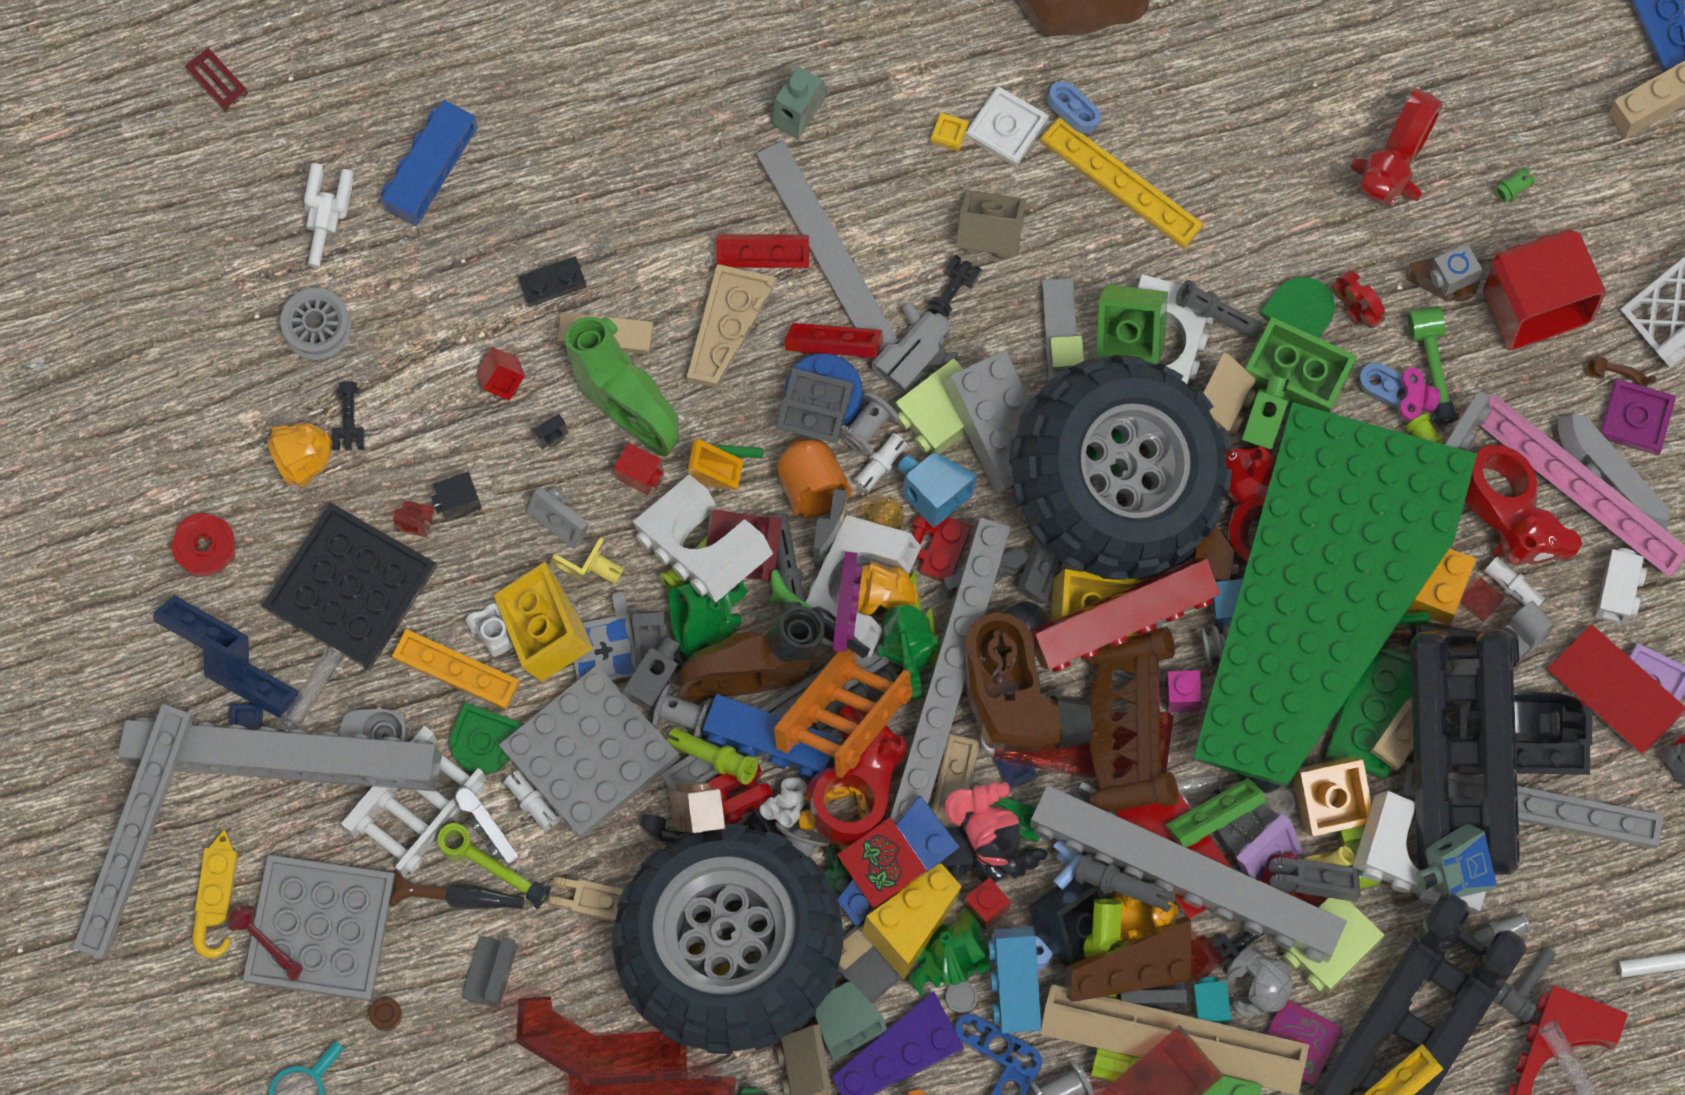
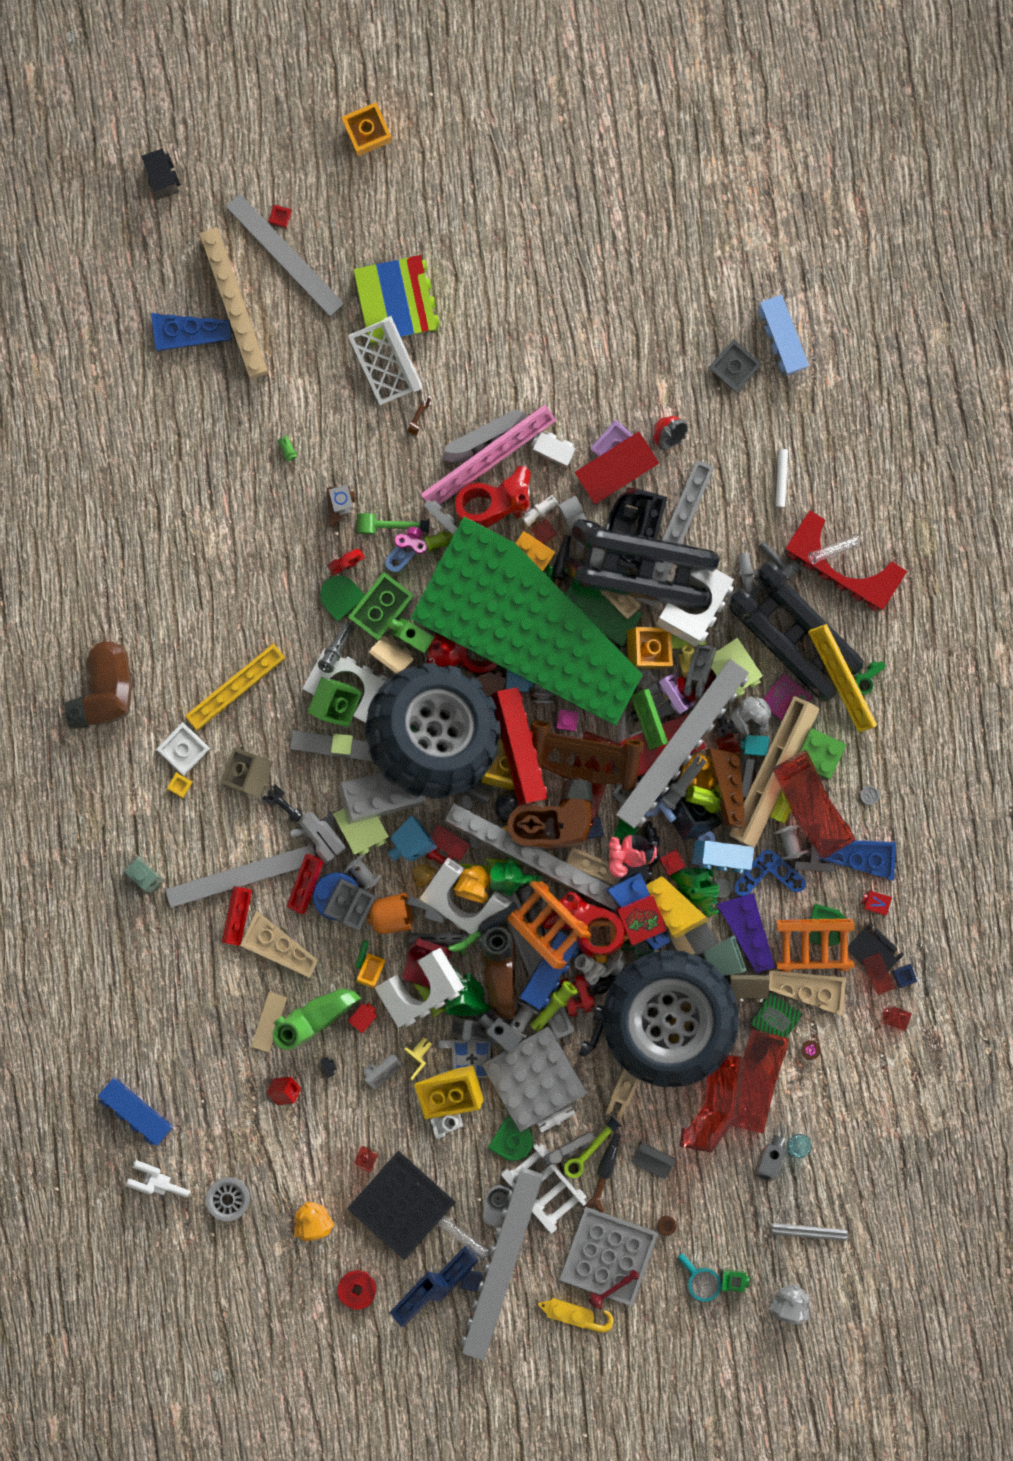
camera: 80 degrees left, 15 degrees up
(133, 831) = (532, 1357): light grey plate -> none
(230, 97) = (63, 1228): dark red tile -> none
(348, 391) = (276, 1186): black hinge -> none
(456, 496) = (358, 1131): black brick -> none
(456, 669) = (466, 1149): light orange plate -> none
(552, 281) = (228, 1048): black plate -> none
(696, 807) = (591, 1023): brick -> none
(847, 602) = (487, 911): magenta plate -> none
(880, 462) = (387, 870): white pin -> none
(1074, 108) = (180, 704): medium blue plate -> none
(1388, 171) = (266, 523): red animal -> none
(1459, 864) = (710, 587): sand green torso -> none
(1543, 289) = (363, 450): red plate -> none
(1637, 416) = (449, 412): magenta tile -> none

